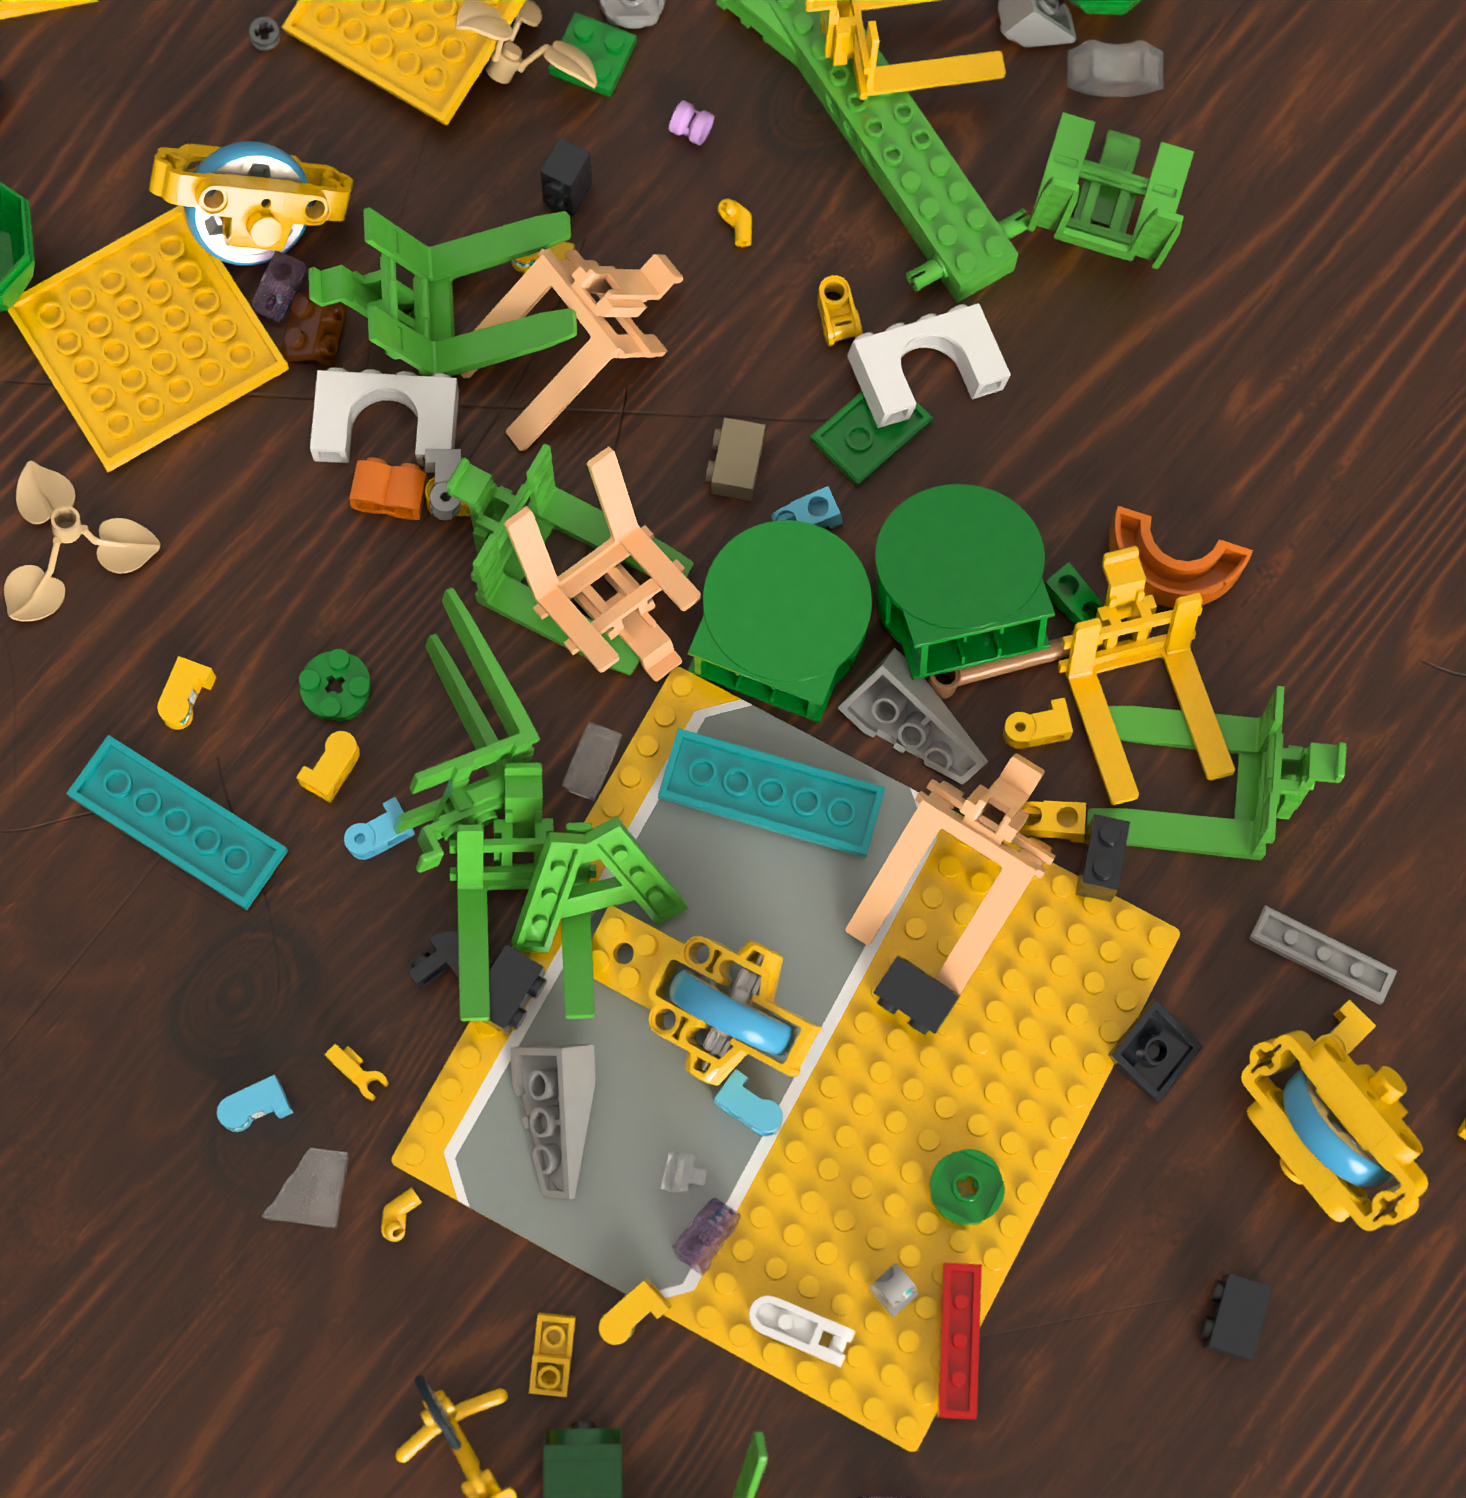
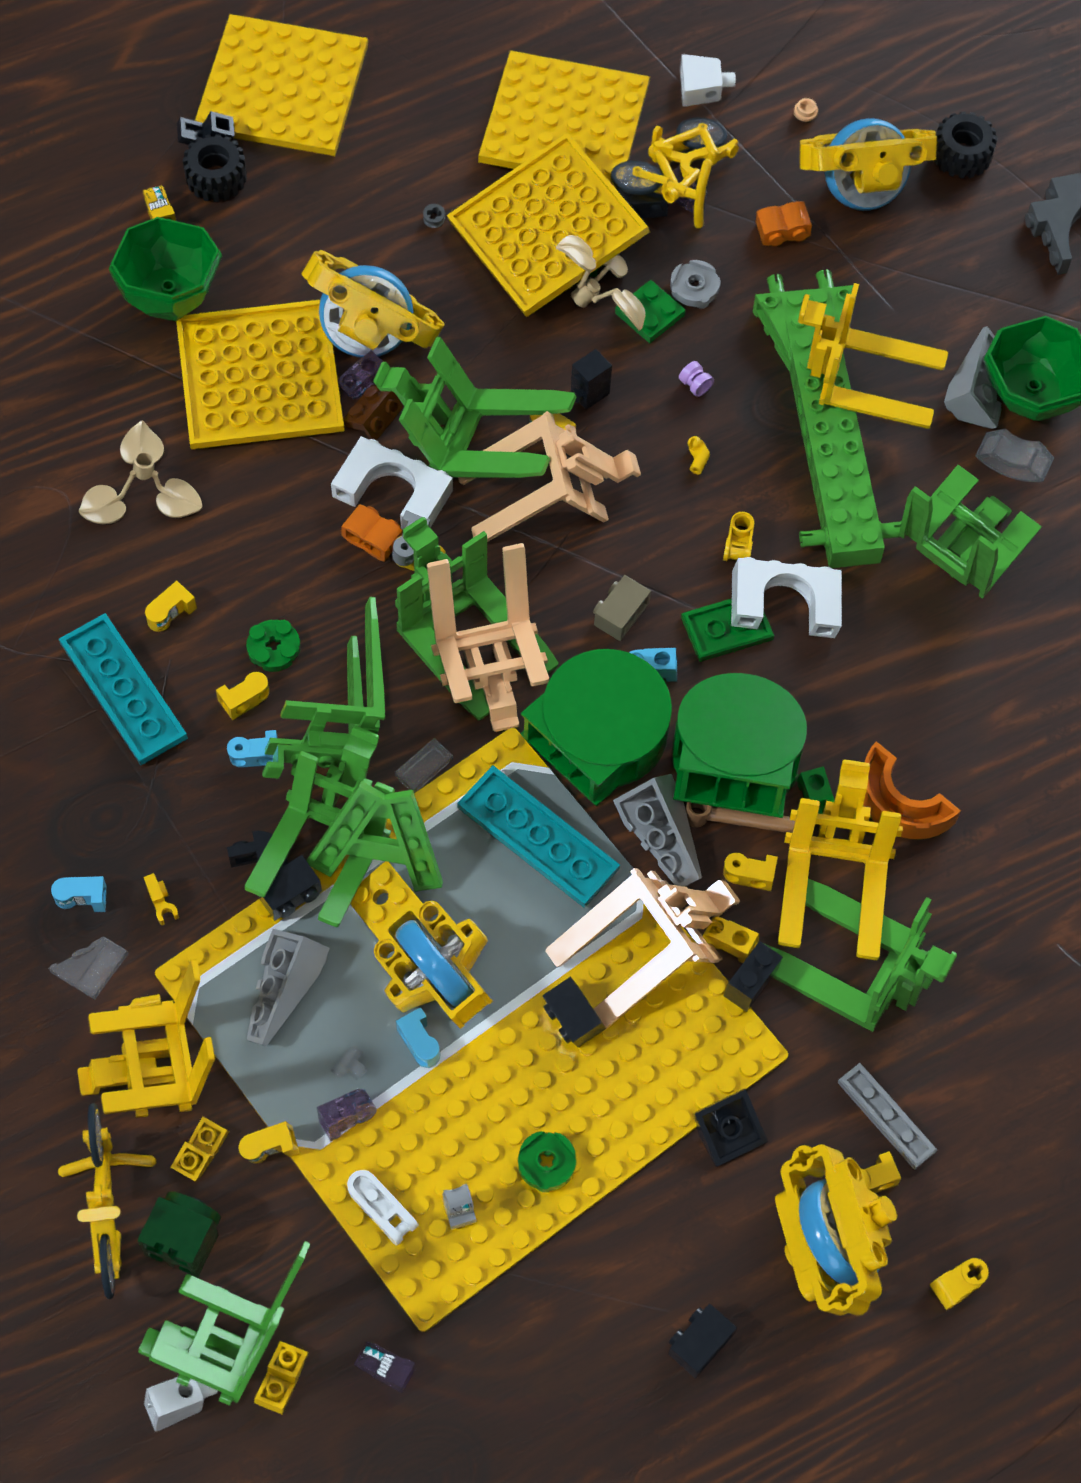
camera: 25 degrees right, 10 degrees down
(431, 1288) = (137, 1067): none -> yellow piece
(959, 1341) = (490, 1265): red plate -> none

